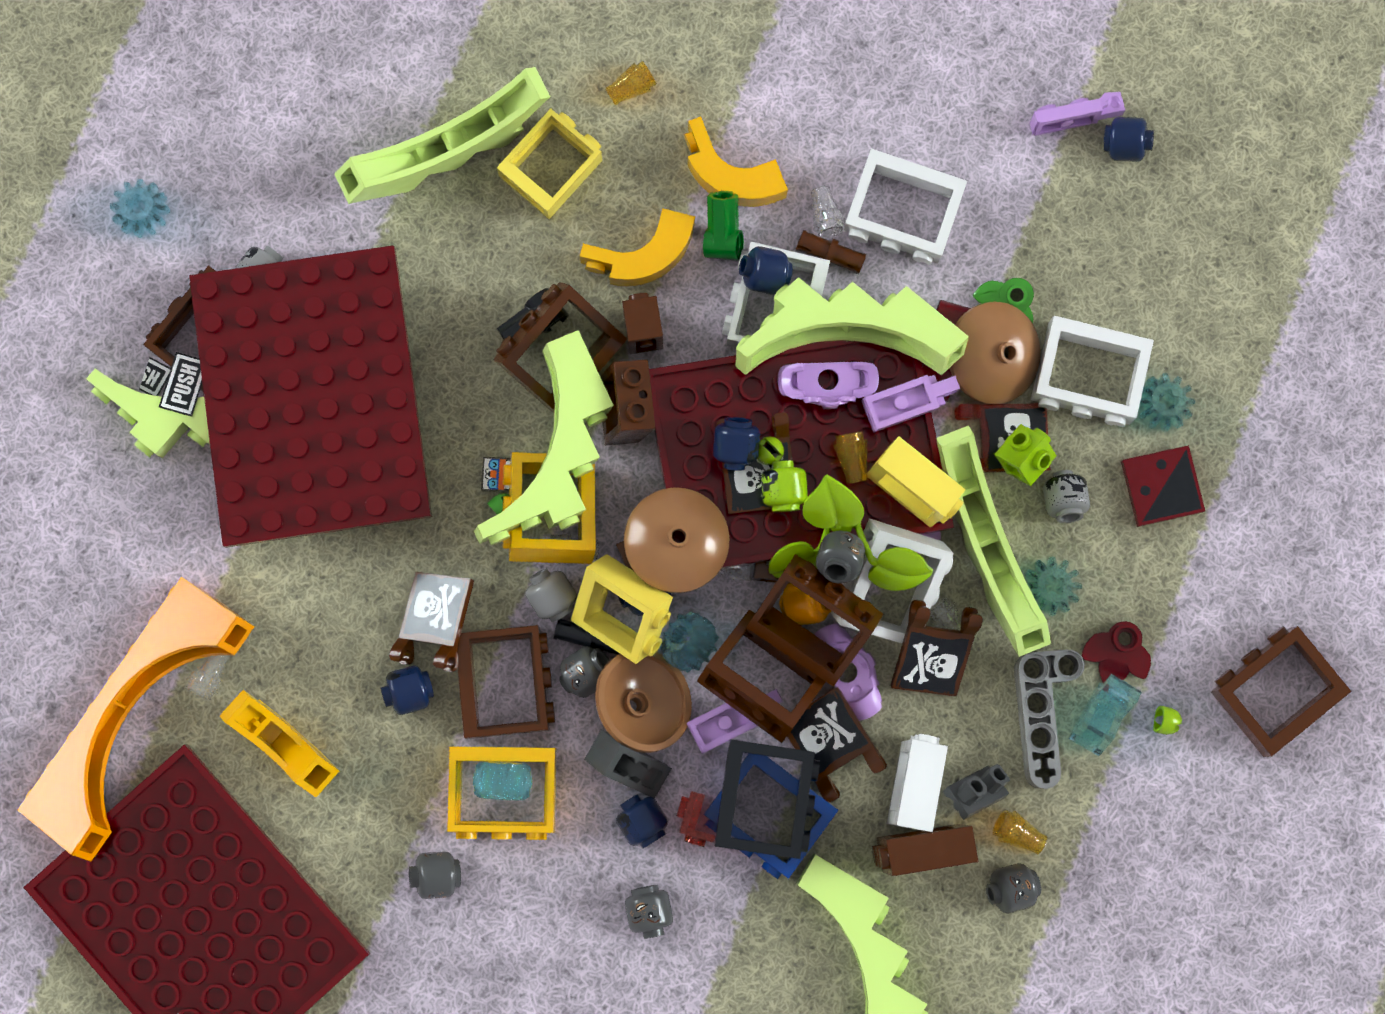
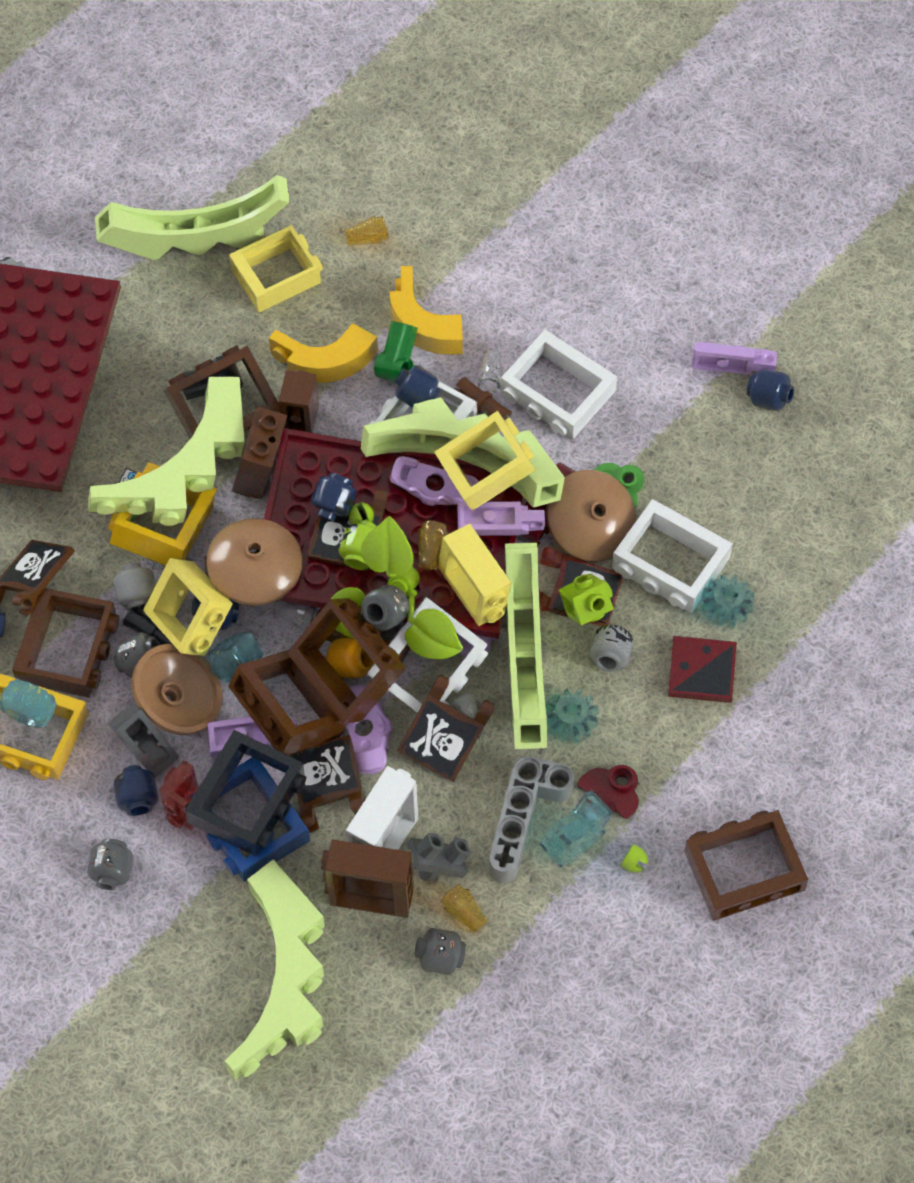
camera: 25 degrees right, 20 degrees down
(857, 373) = (500, 479): none -> light yellow window

